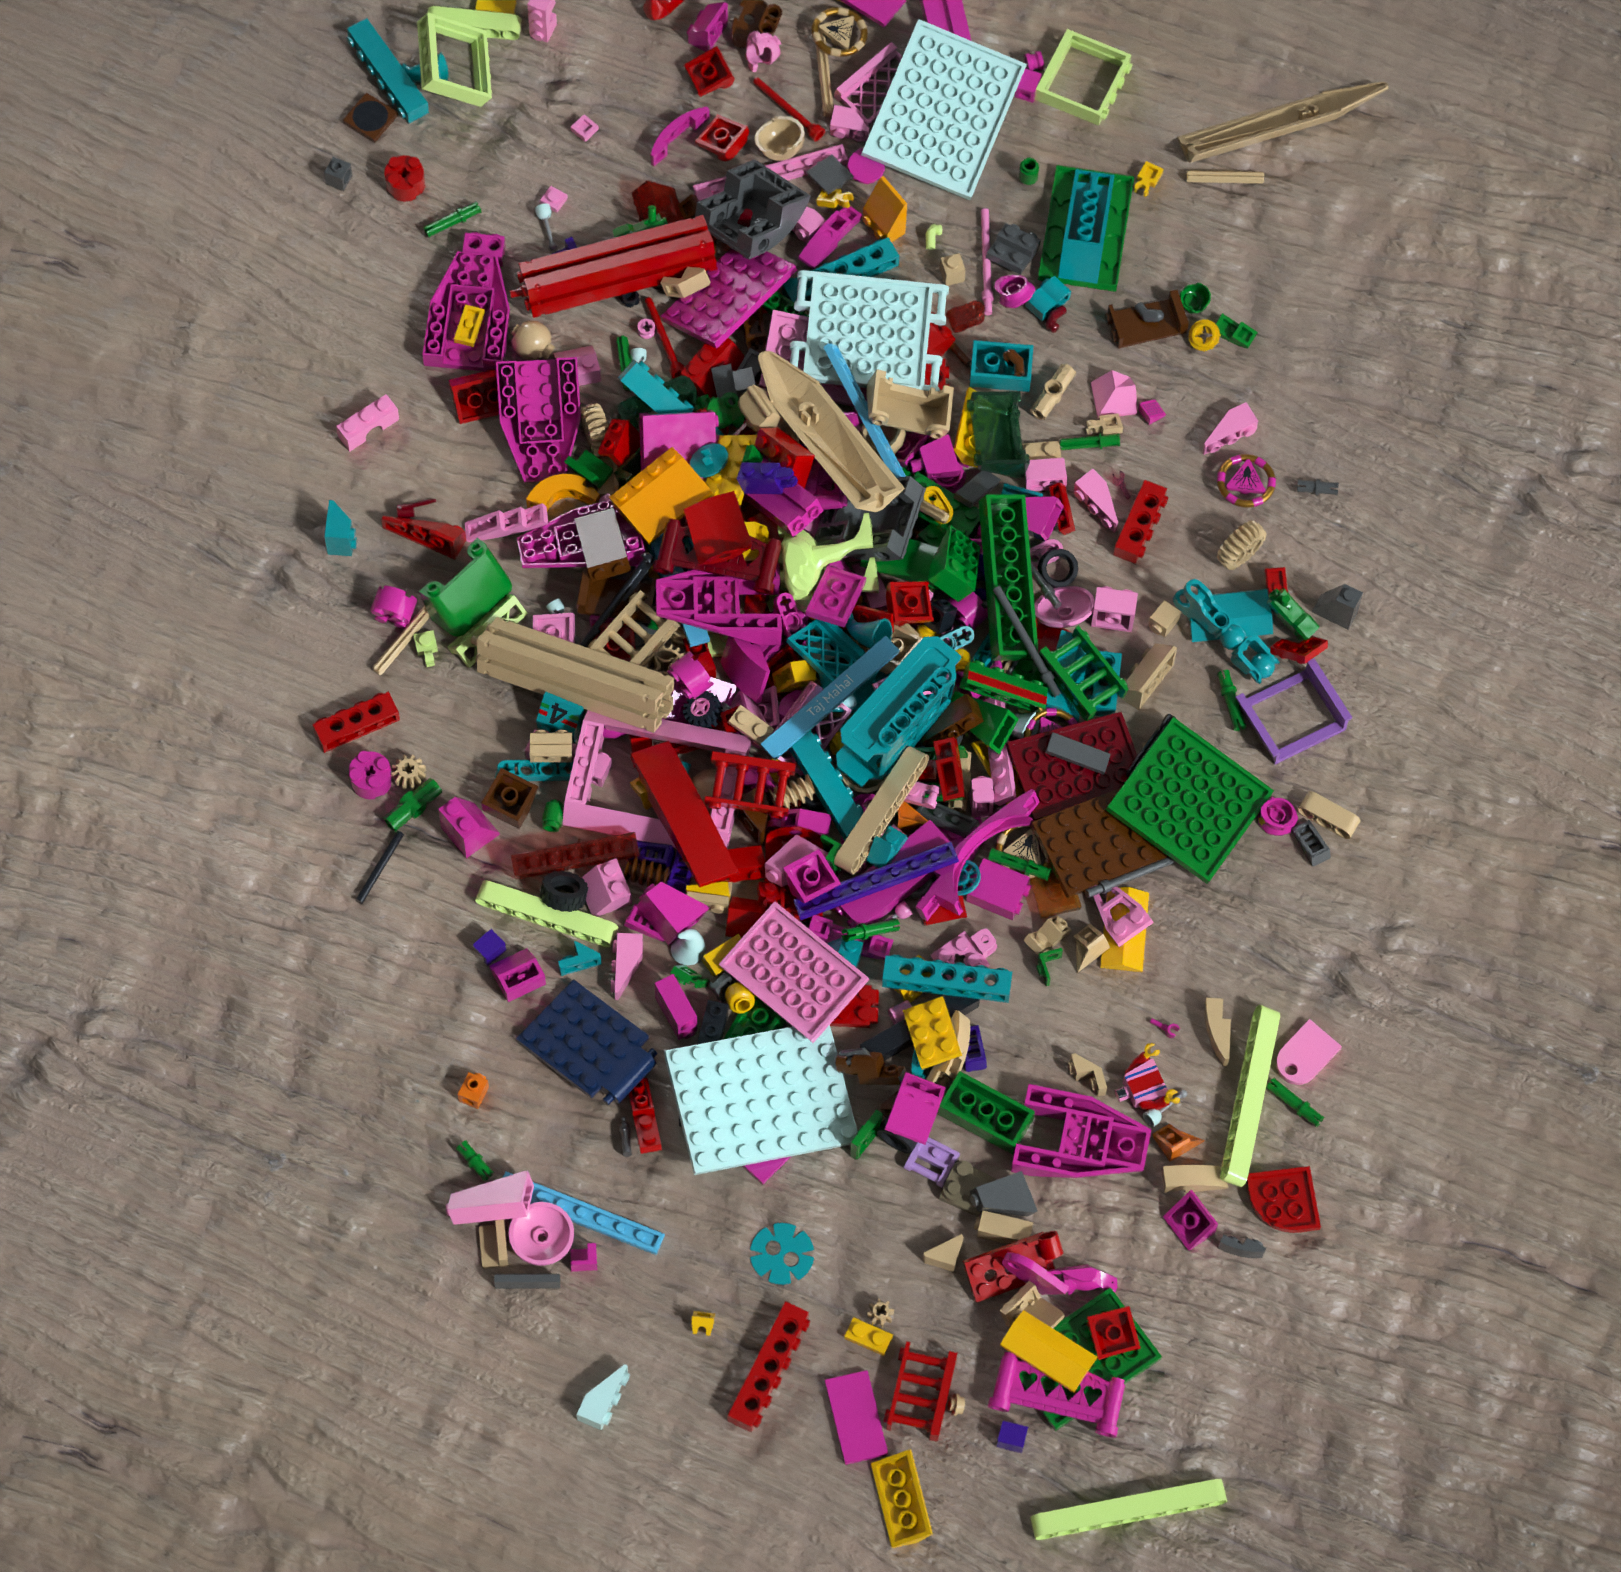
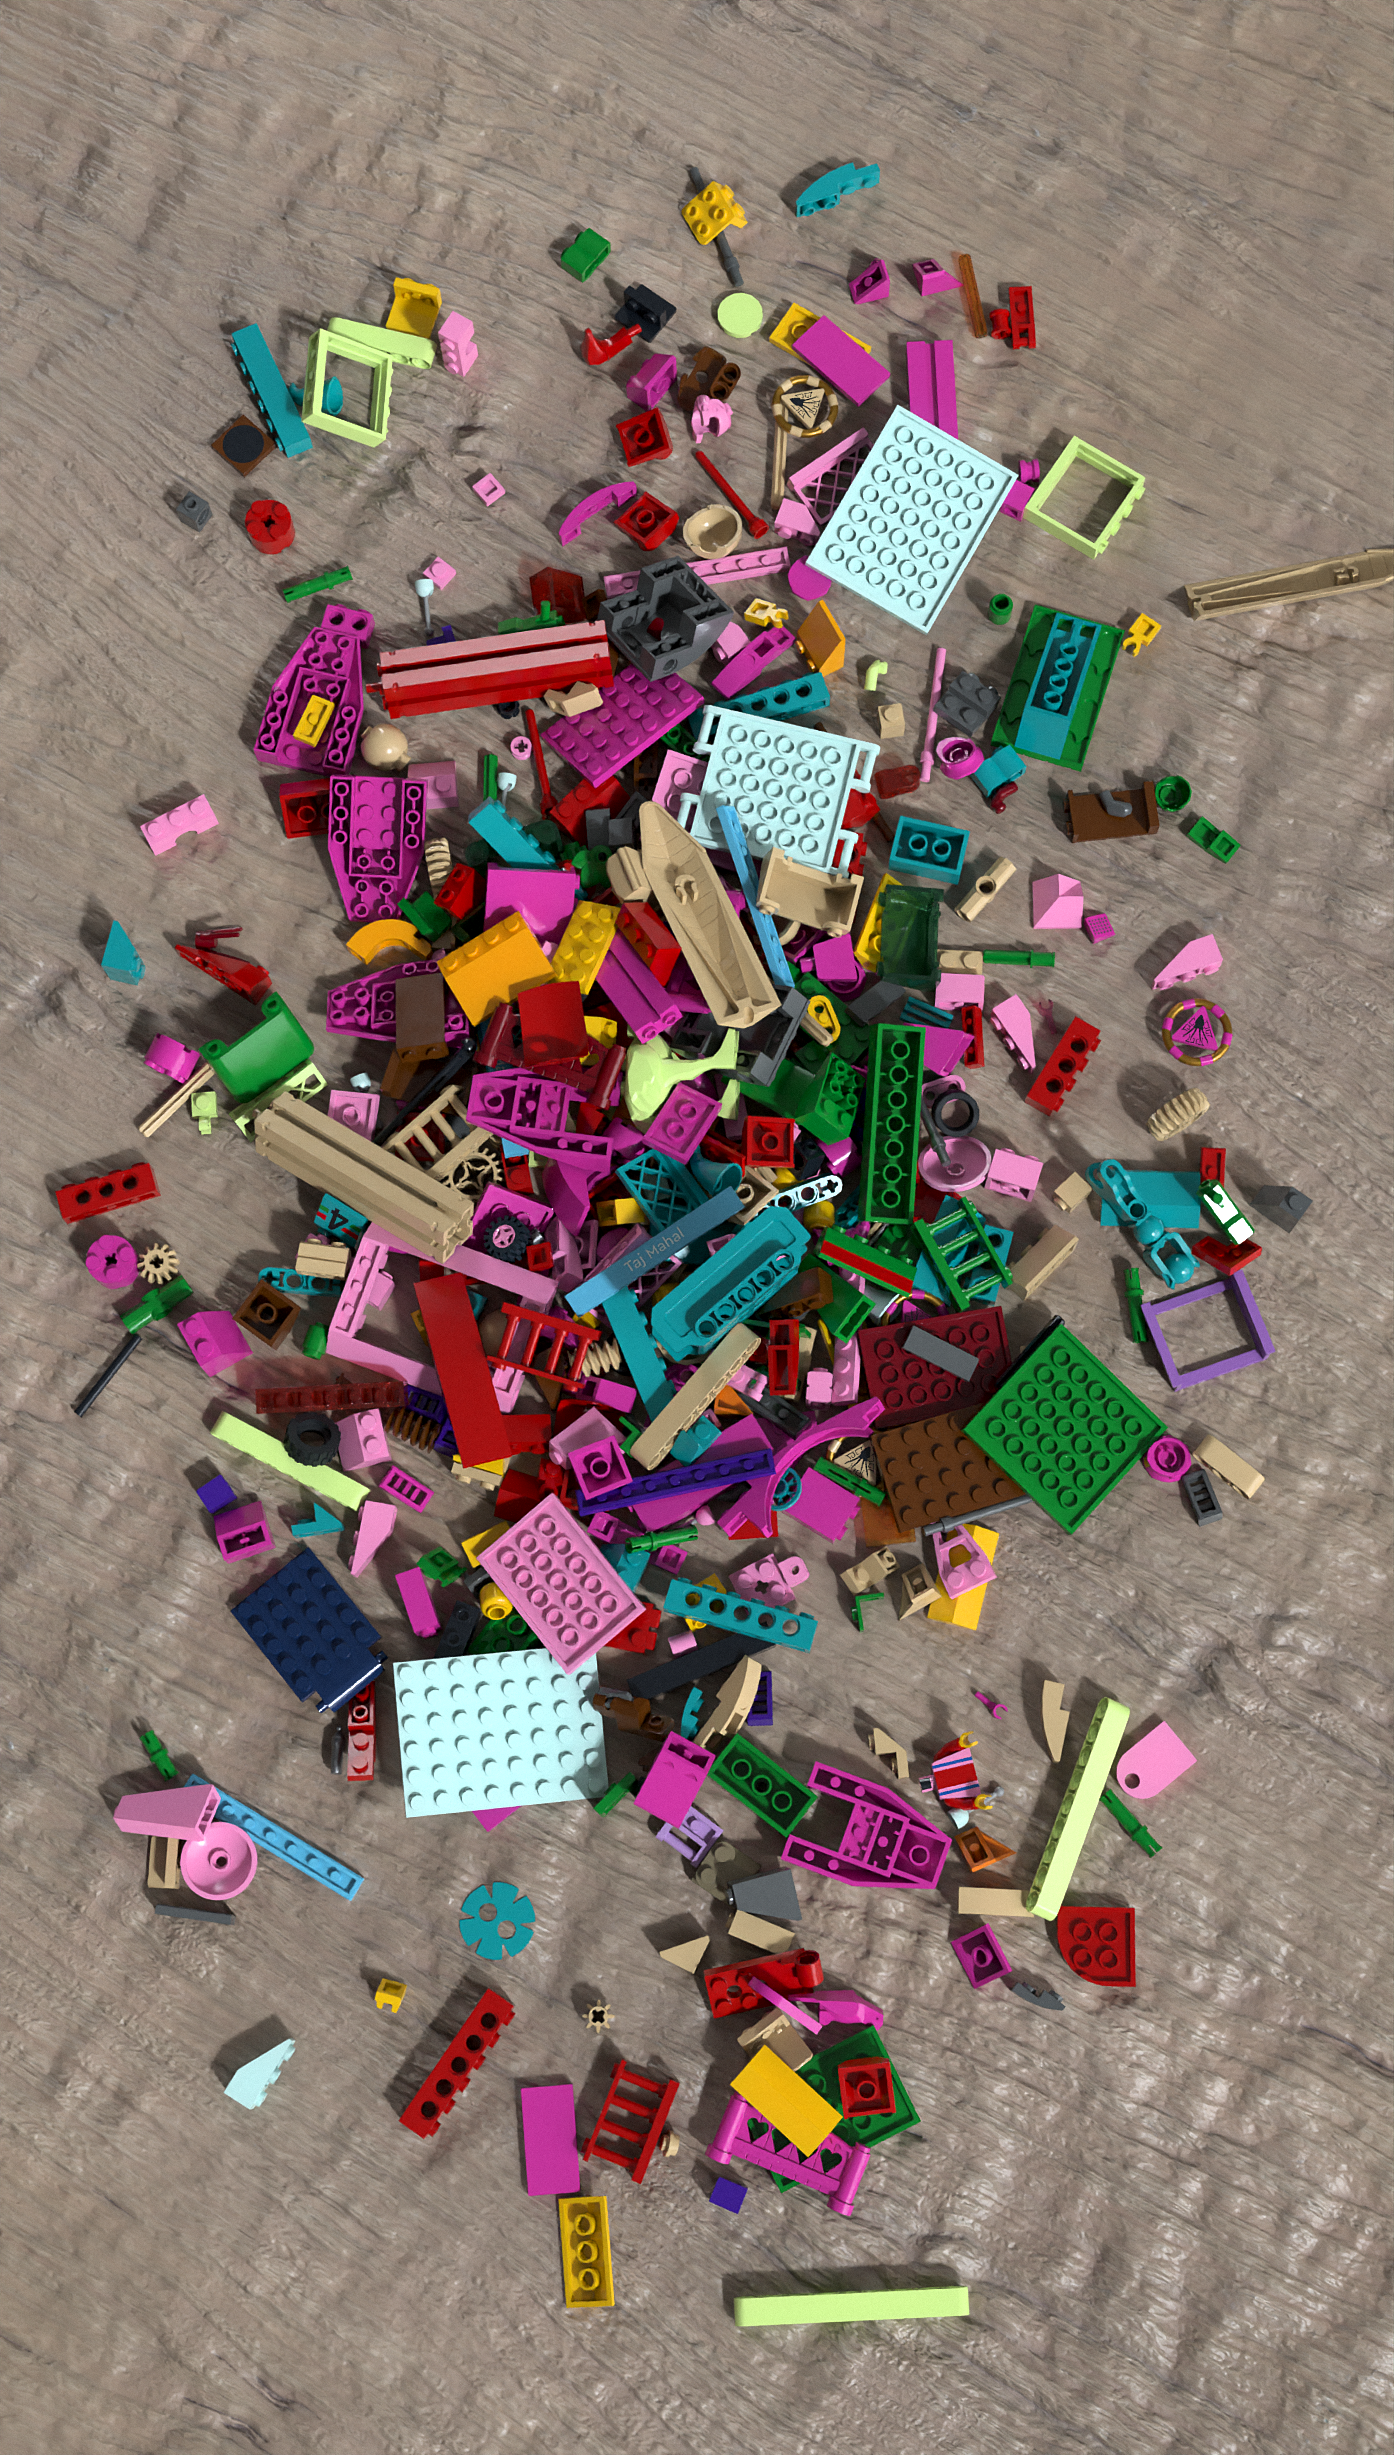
camera: 15 degrees right, 10 degrees up
(473, 1090) = (171, 1668): orange brick -> none
(505, 524) = (319, 971): bright pink slope -> none
(584, 1258) = (266, 1895): dark pink panel -> none
(670, 910) = (430, 1484): dark pink slope -> none
(688, 947) = (448, 1527): light aqua hat -> none
(690, 675) = (496, 1199): dark pink brick -> none
(709, 460) = (560, 931): teal piece -> none
(750, 725) = (558, 1269): tan plate -> none
(752, 455) = (610, 939): green tile -> none
(765, 478) = (619, 968): dark purple hinge -> none
(795, 613) = (628, 1125): dark pink beam -> none
(829, 174) = (765, 583): dark grey piece -> none
(868, 1336) = (581, 2040): yellow plate -> none
(932, 1032) = (712, 1681): yellow plate -> none
(1016, 359) = (947, 849): reddish brown arm -> none
(1046, 676) = (918, 1254): dark grey bar -> none
(1107, 424) = (1043, 938): tan plate -> none
(1198, 329) = (1168, 833): yellow gear -> none
(1225, 176) = (1233, 643): tan axle -> none
(1318, 487) = (1281, 1050): dark grey pin -> none

